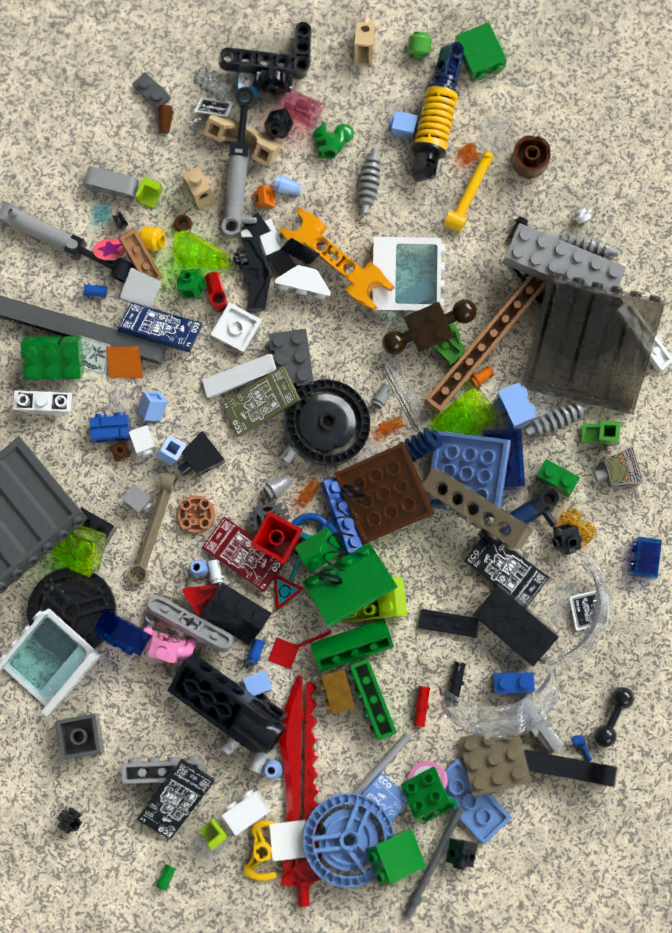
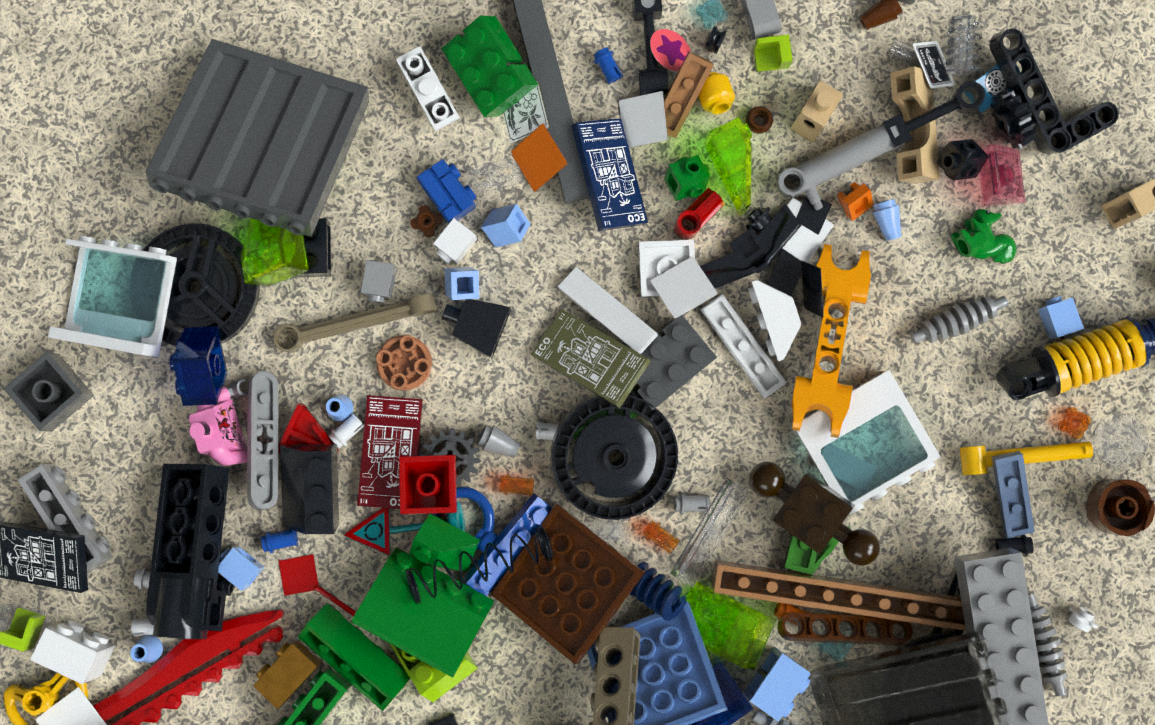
camera: 50 degrees right, 5 degrees up
(253, 323) = (683, 287): none -> white sticker
(309, 312) = (743, 346): none -> white tile
(487, 211) = (1013, 494): none -> sand blue plate
(506, 359) = (833, 634): none -> reddish brown beam
(514, 357) = (837, 652): none -> clear light blue plate

